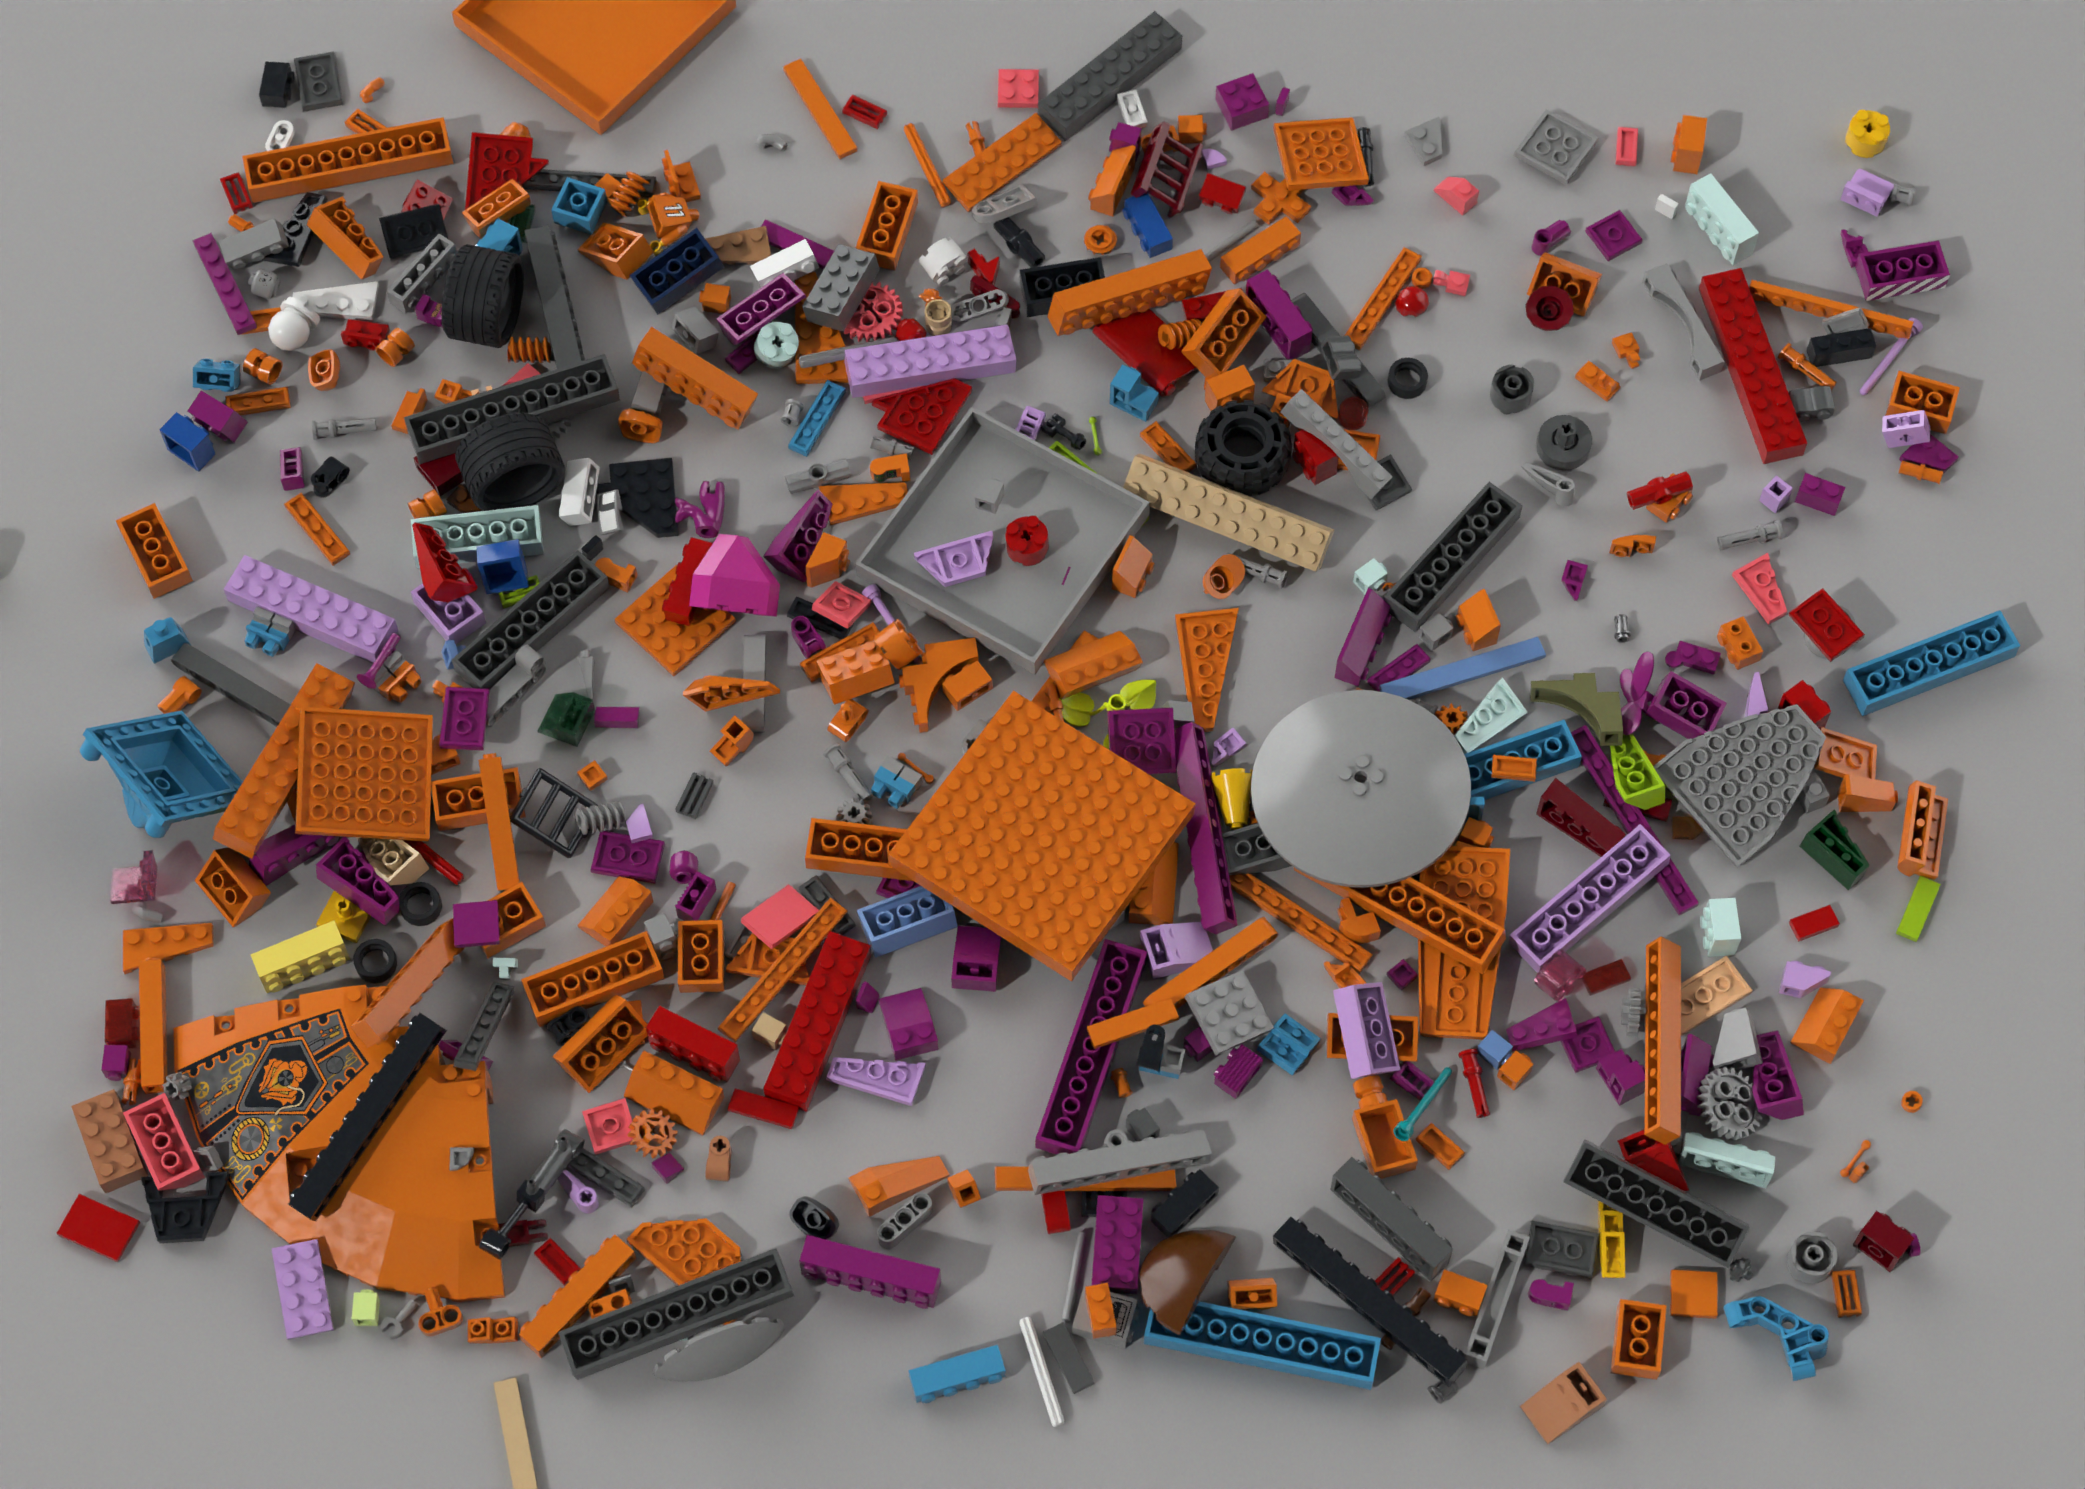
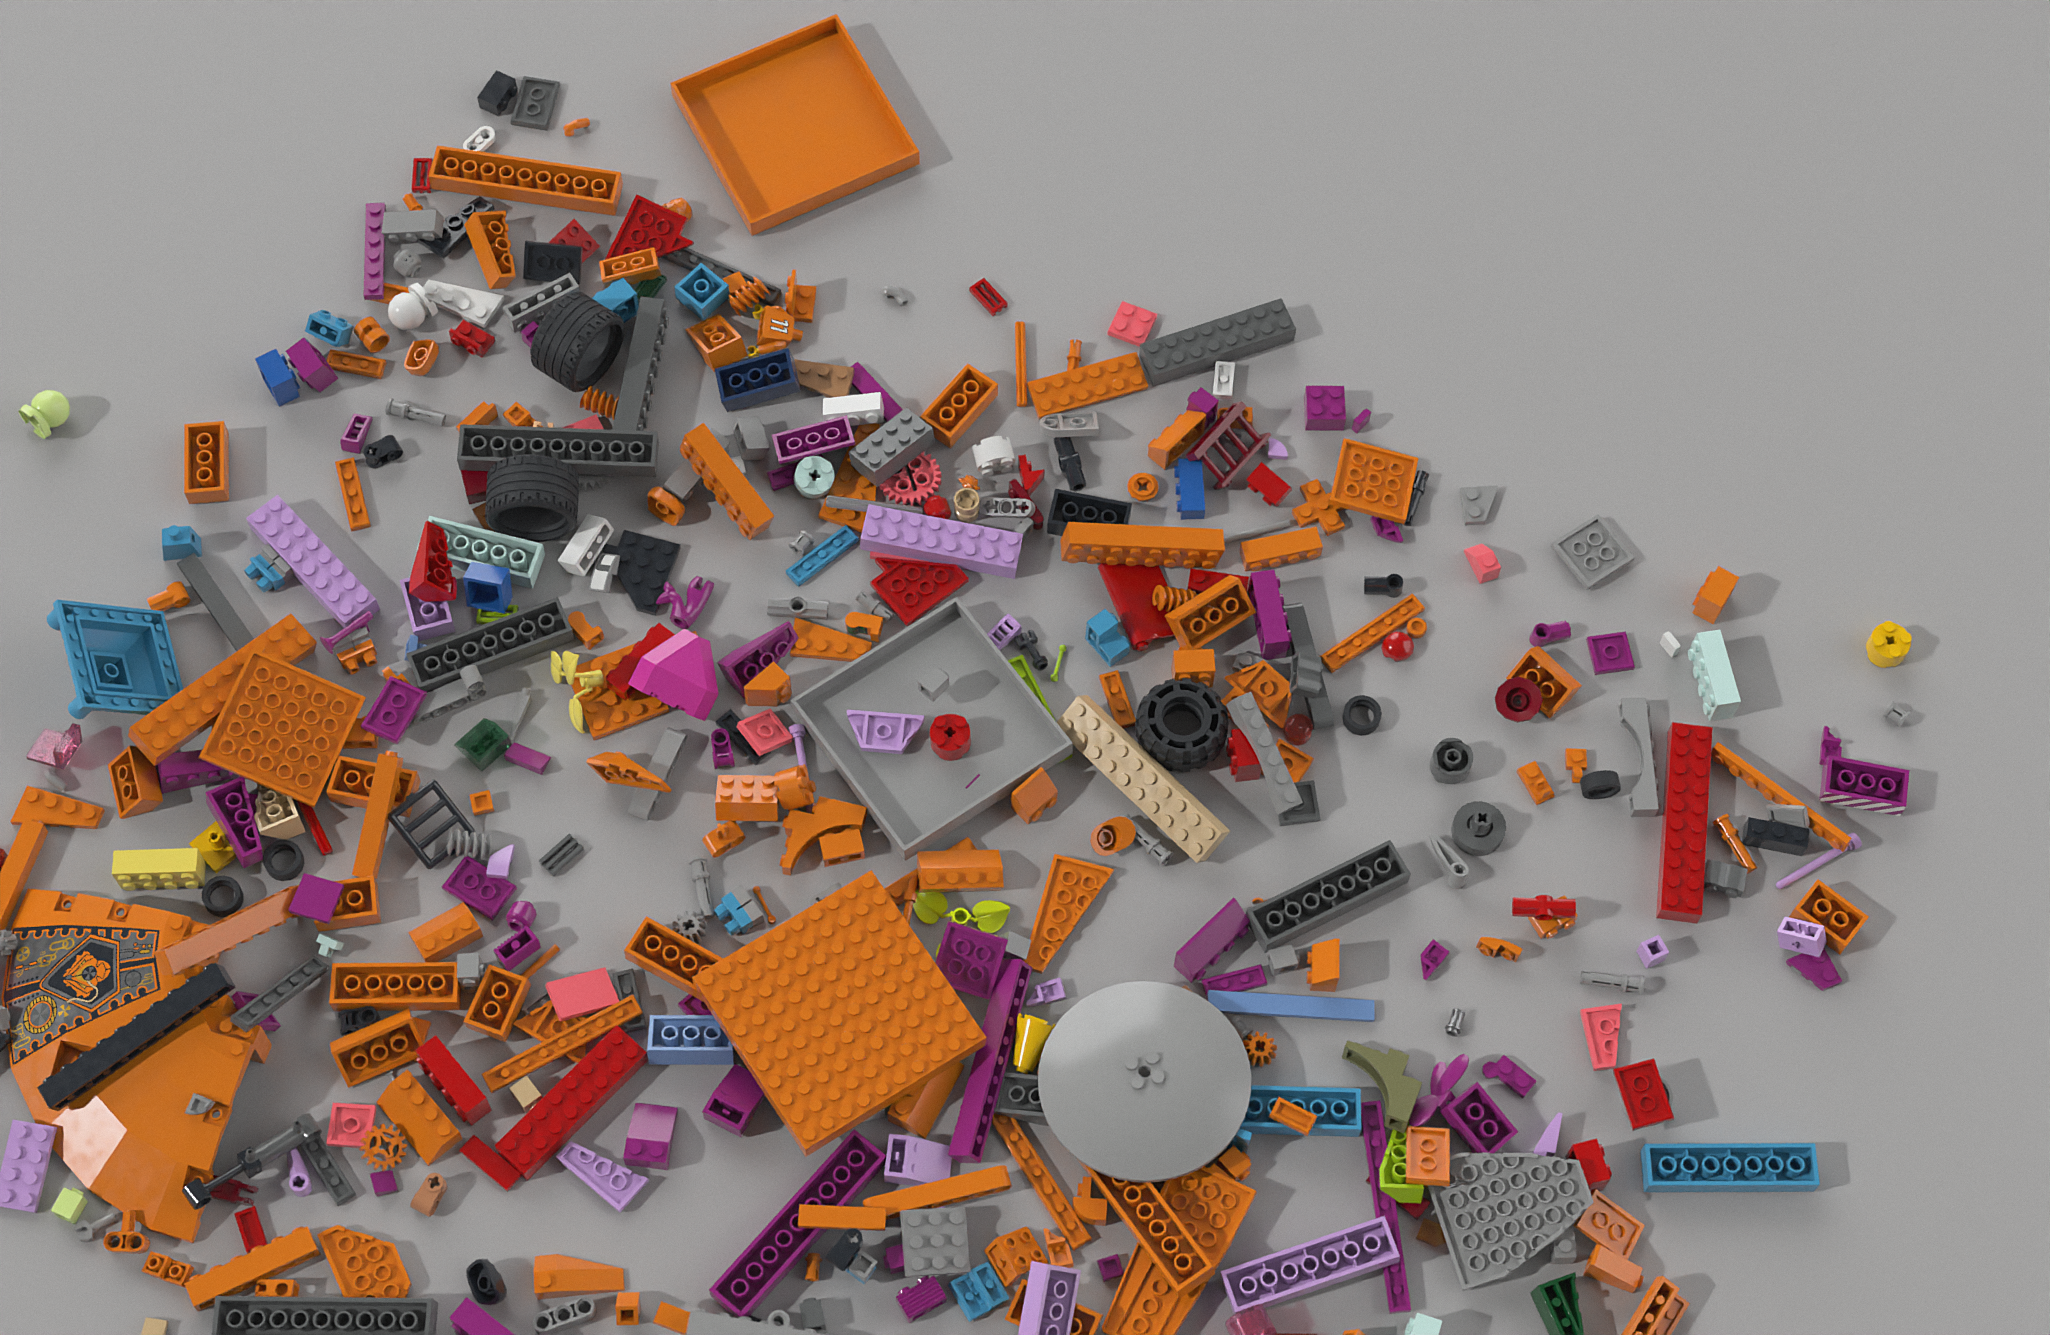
camera: 20 degrees right, 0 degrees up
(349, 122) = (550, 145): orange tile -> none
(395, 347) = (490, 358): orange wheel -> none
(429, 506) = (452, 509): orange wheel -> none
(592, 548) = (574, 599): black tile -> none
(622, 1282) = (294, 1272): dark grey slope -> none
(629, 607) = (587, 679): none -> light yellow plant
(715, 298) = (782, 416): orange brick -> none
(735, 740) = (617, 818): orange brick -> none
(820, 108) = (950, 280): orange tile -> none
(856, 639) = (760, 769): orange tile -> none
(867, 998) = (625, 1098): magenta slope -> none
(1191, 128) = (1268, 416): orange brick -> none
(1307, 998) = (1013, 1254): none -> orange bracket
(1371, 575) = (1246, 886): light aqua brick -> none
(1372, 249) = (1381, 585): none -> black piece
(1455, 282) = (1445, 643): coral plate -> none
(1490, 717) = (1298, 1058): light aqua wing -> none
(1578, 819) = (1334, 1187): dark red wedge -> none
(1626, 146) = (1658, 575): coral tile -> none
(1654, 755) = (1427, 1156): none -> orange tile
(1660, 359) = (1600, 784): none -> black tyre
(1739, 643) = (1558, 1078): orange brick -> none
(1820, 494) = (1694, 967): magenta brick -> none
(1867, 192) = (1864, 699): lavender bracket -> none
(1920, 472) = (1800, 981): orange pin -> none

